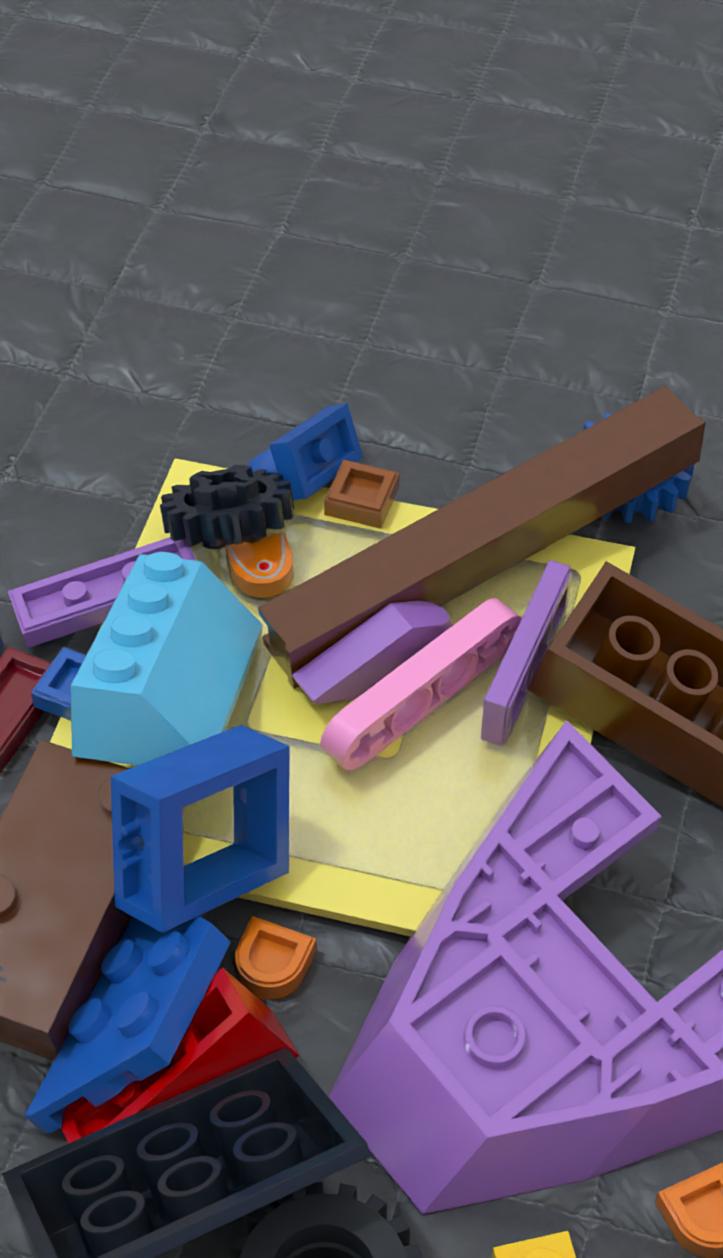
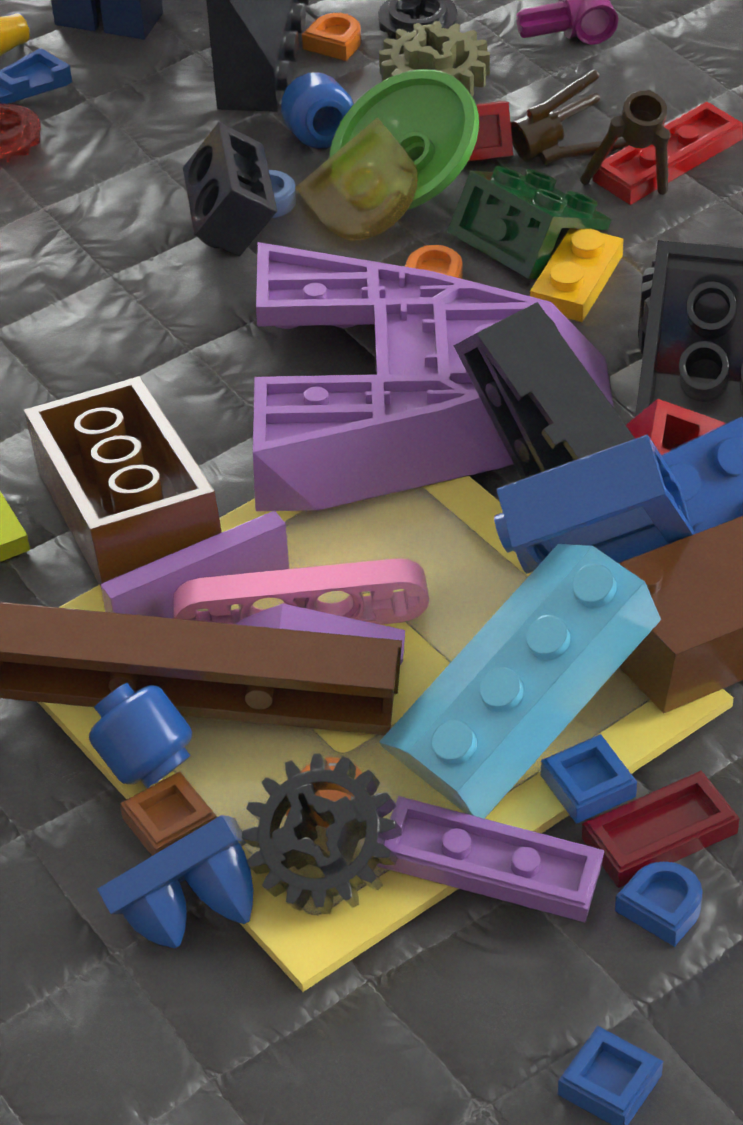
camera: 140 degrees left, 5 degrees down
(347, 941) = (539, 393): none -> black wedge
(417, 490) = (140, 734): none -> blue head

